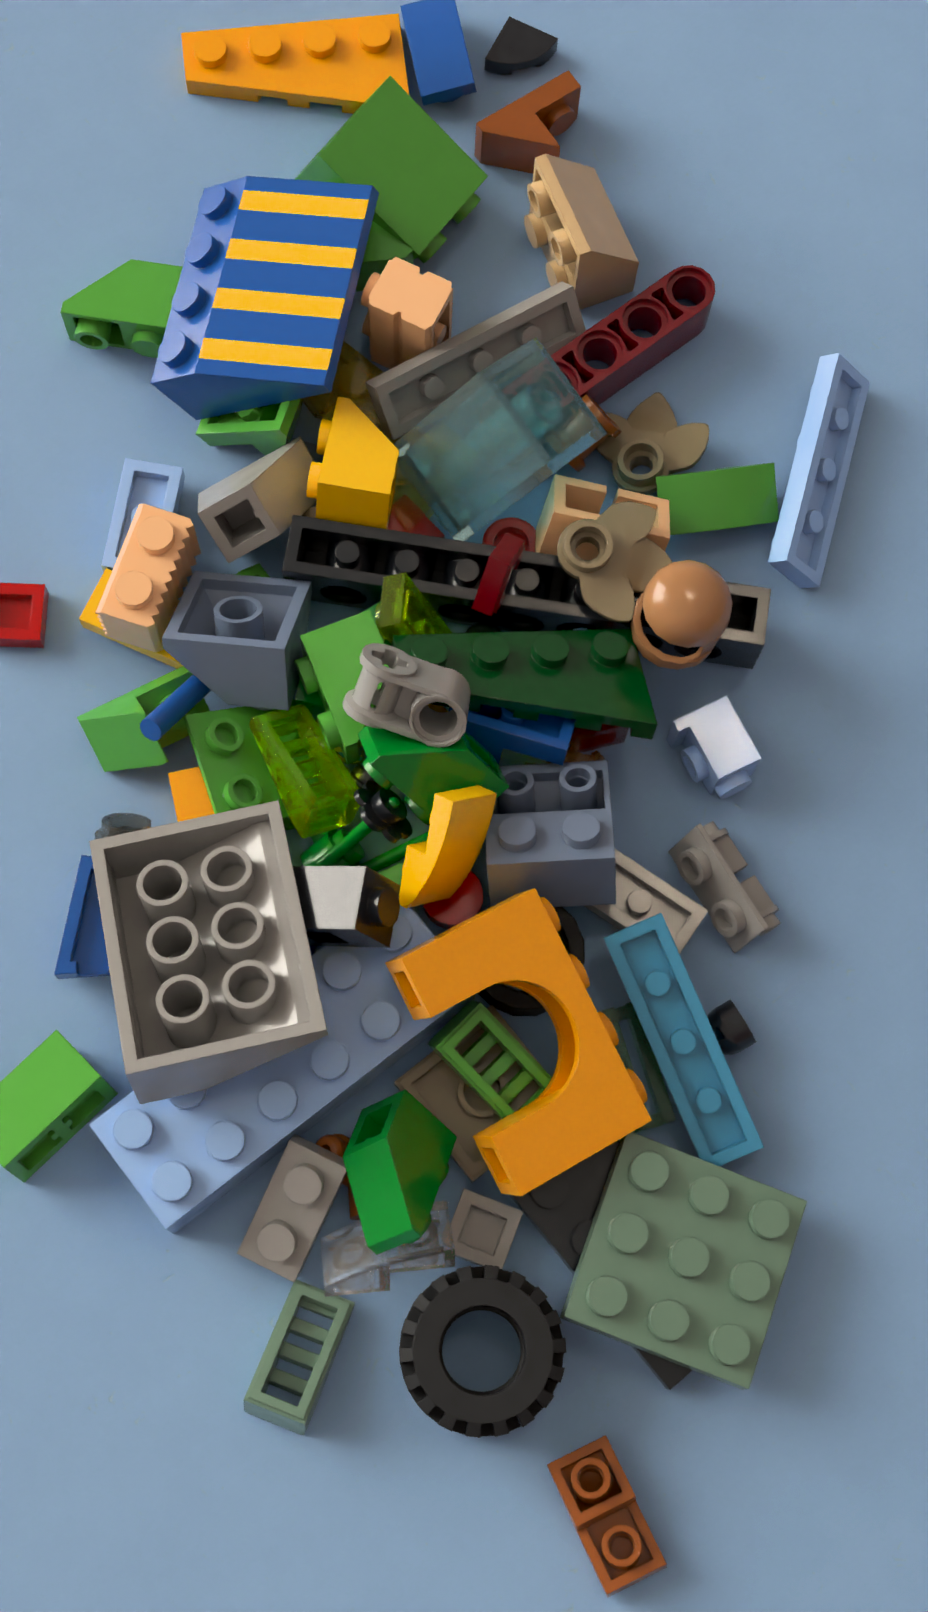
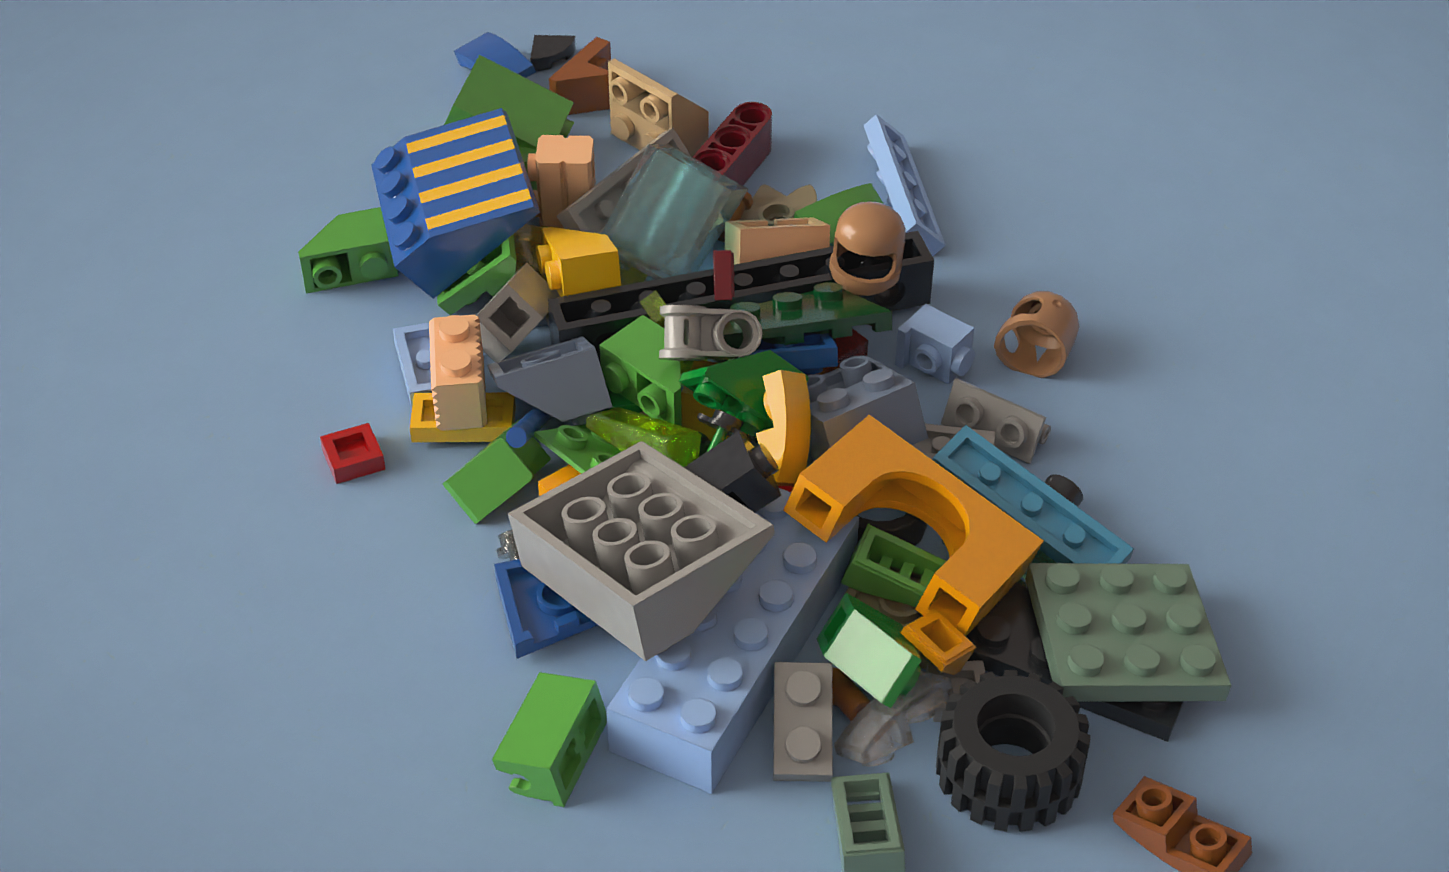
camera: 20 degrees left, 30 degrees down
(299, 61) = (390, 100): light orange wing -> none
(467, 1196) = (939, 642): none -> light orange slope
(624, 558) = (796, 242): dark tan plate -> none
(854, 779) = (1040, 321): none -> medium nougat helmet

